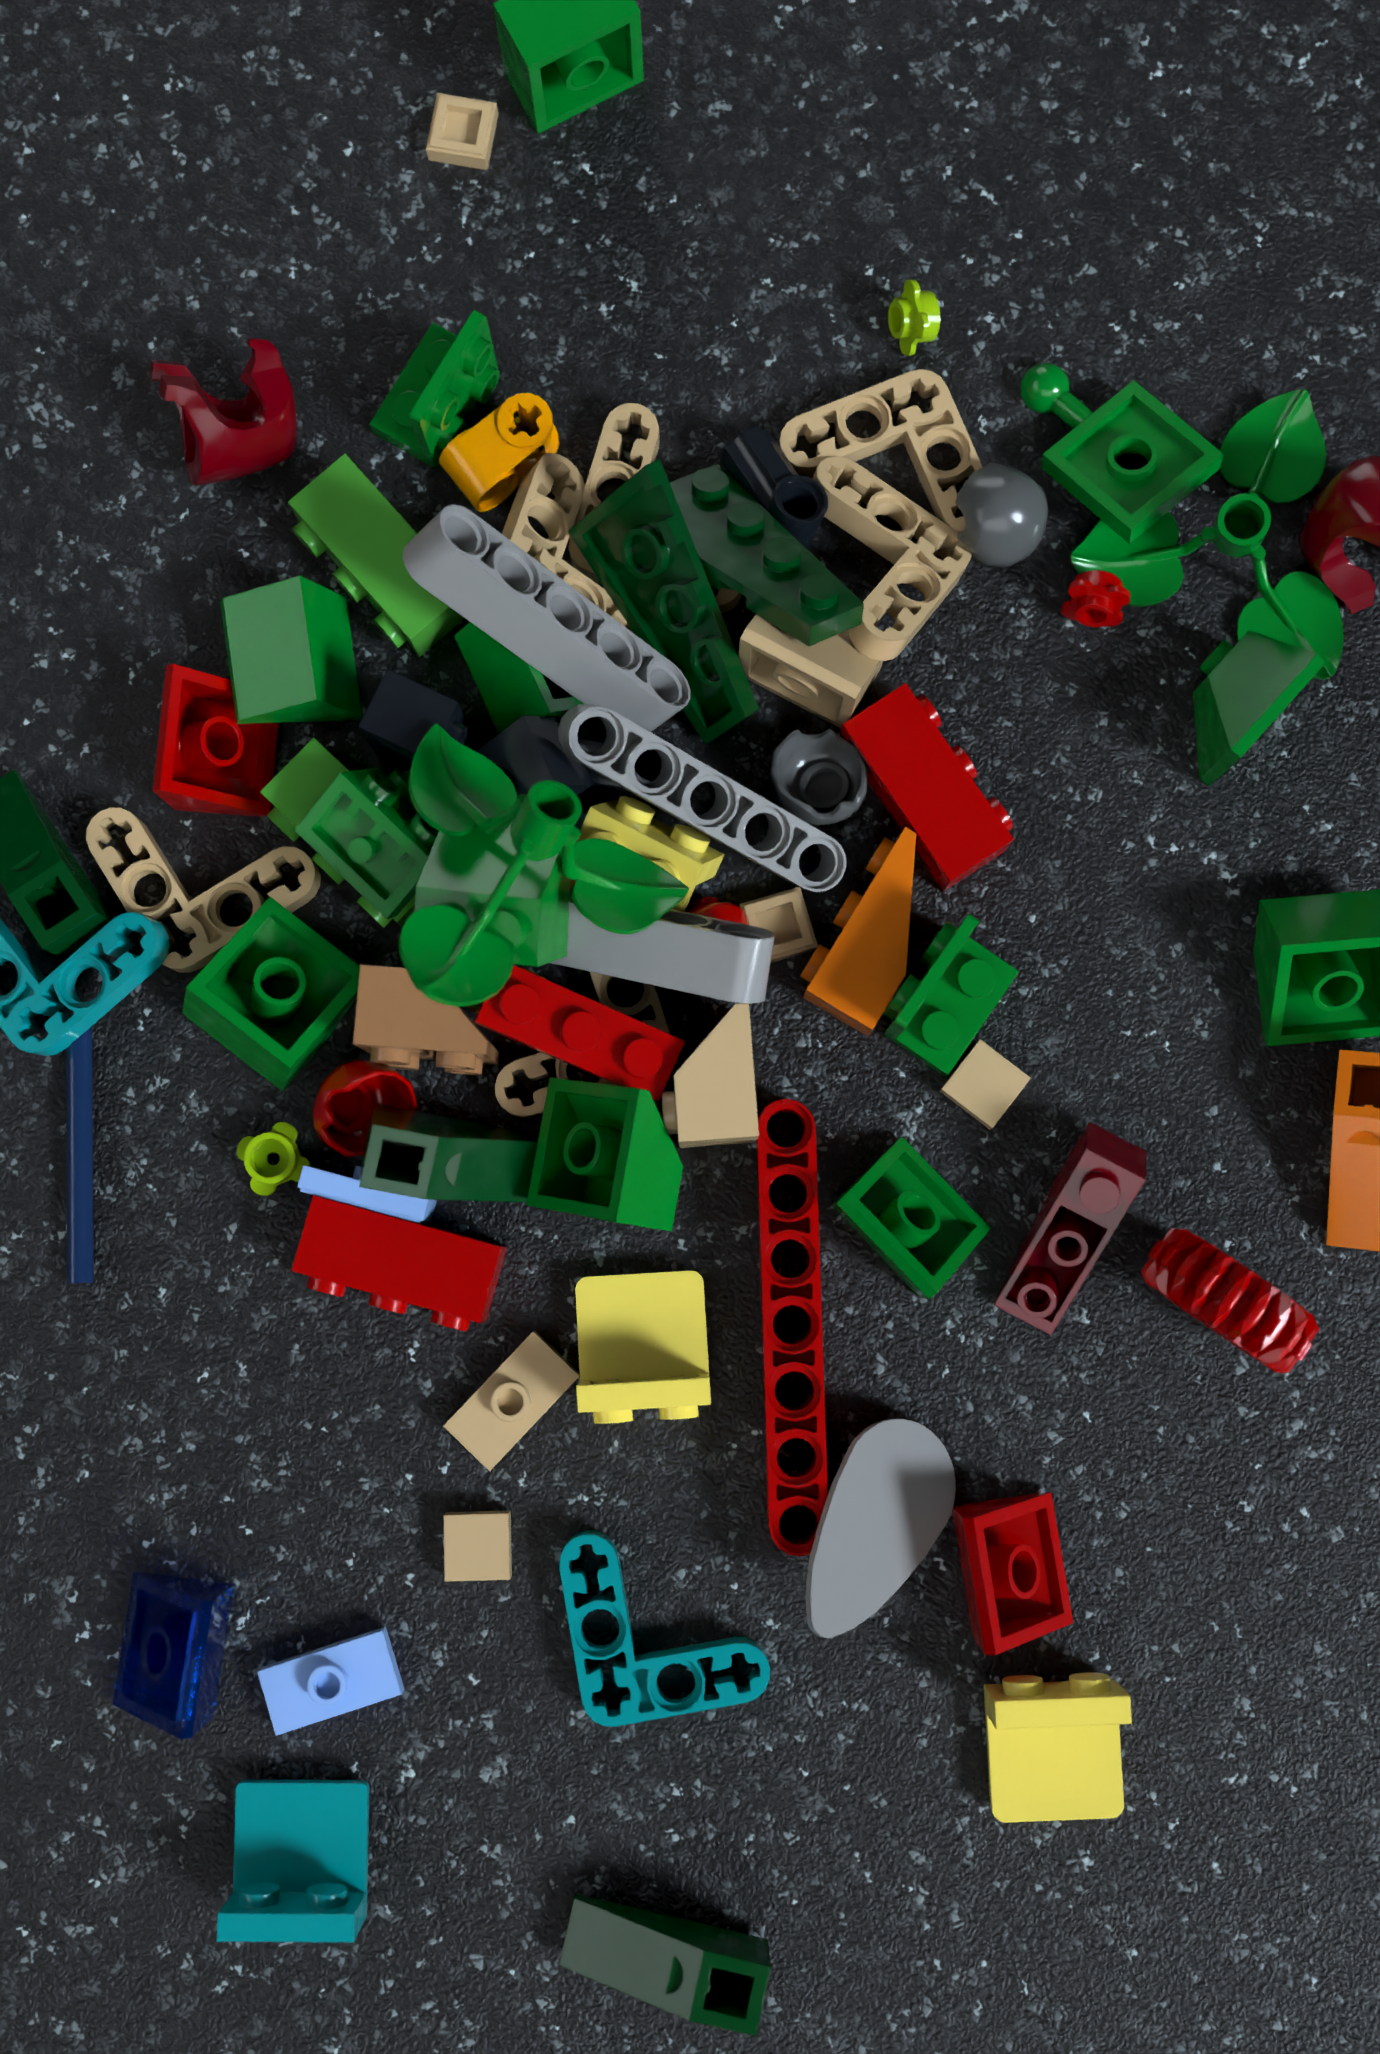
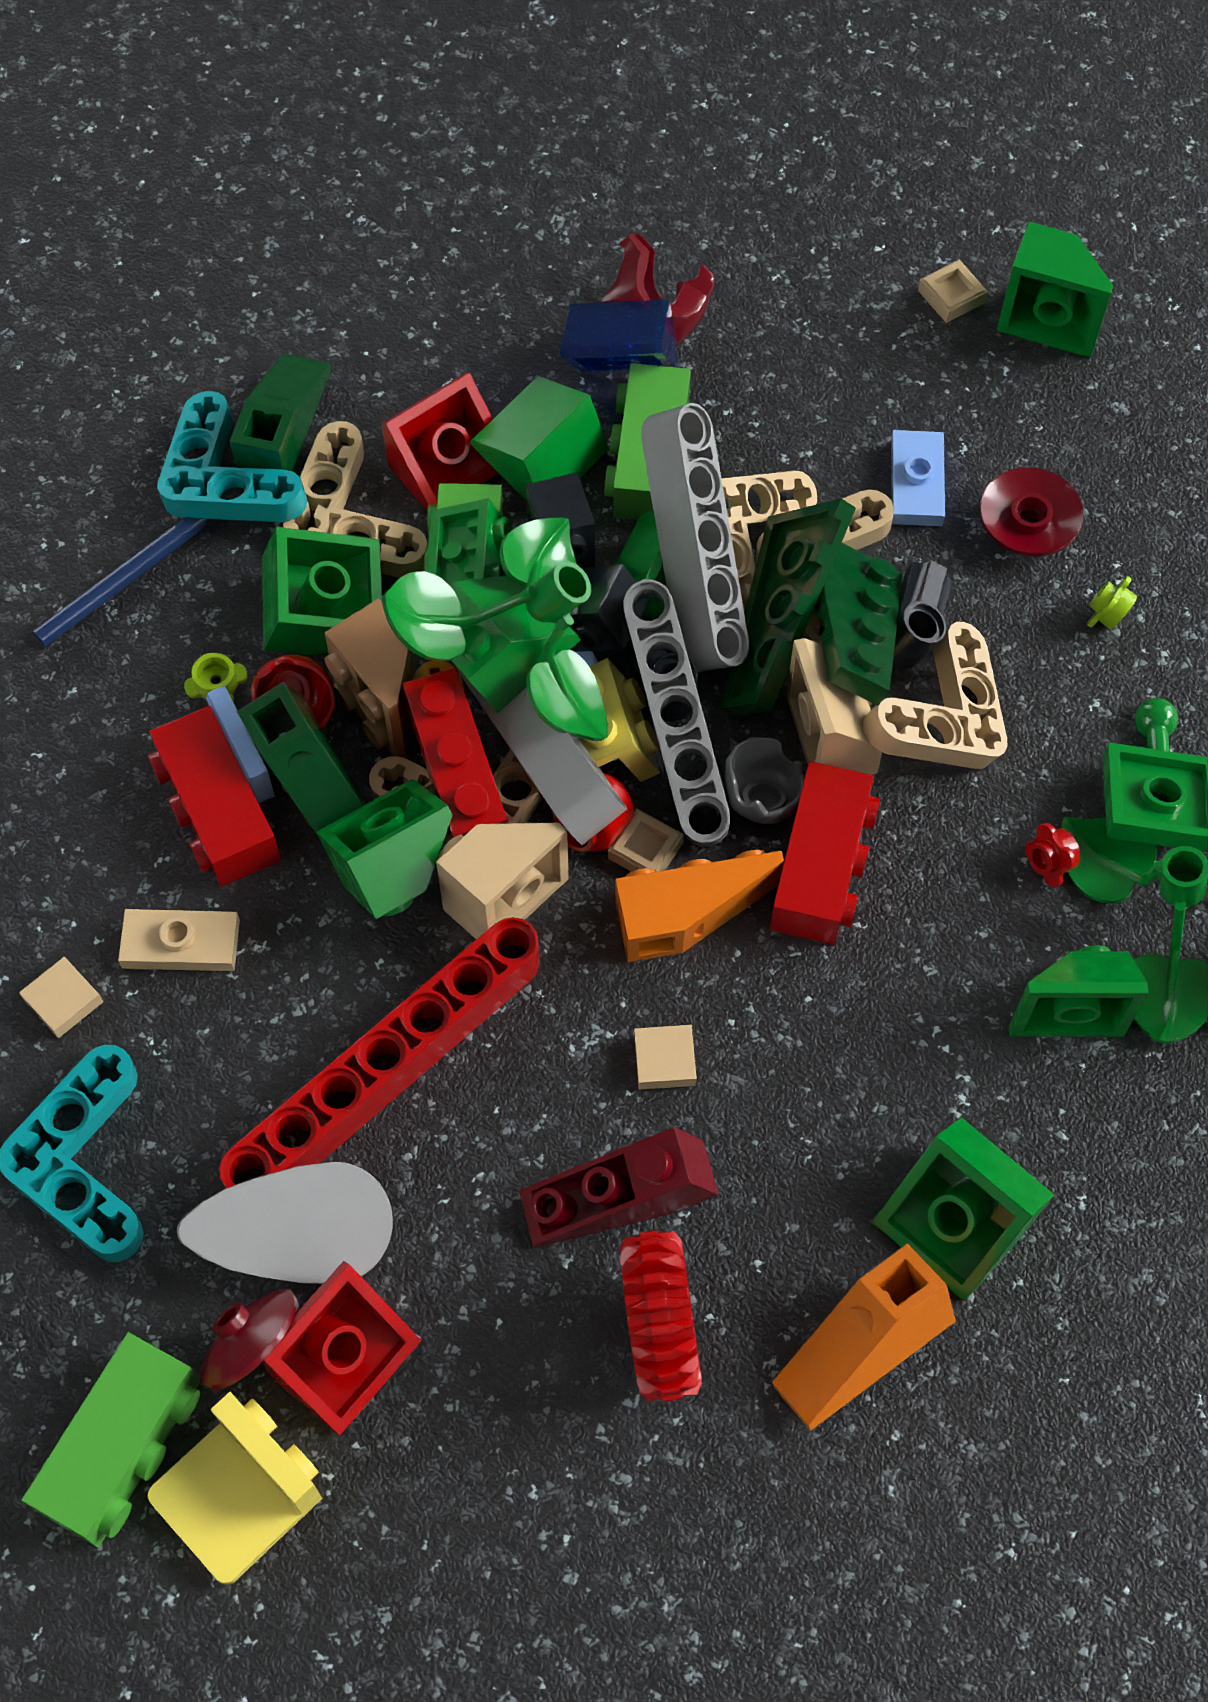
camera: 45 degrees right, 20 degrees down
(253, 486) = (618, 334): none -> clear blue slope
(439, 390) = (785, 393): green bracket -> none
(494, 455) = (784, 446): light orange piece -> none
(630, 354) = (917, 478): none -> light blue plate
(642, 1345) = (286, 984): light yellow bracket -> none
(769, 270) = (1032, 496): none -> dark red dish
(912, 1218) = (526, 1079): green slope -> none
(914, 429) = (1045, 665): tan beam -> none
(933, 1814) = (114, 1441): none -> bright green brick
(948, 1641) = (247, 1337): none -> dark red dish
(951, 1001) = (699, 970): green bracket -> none
(1002, 515) = (1042, 750): dark grey hair -> none

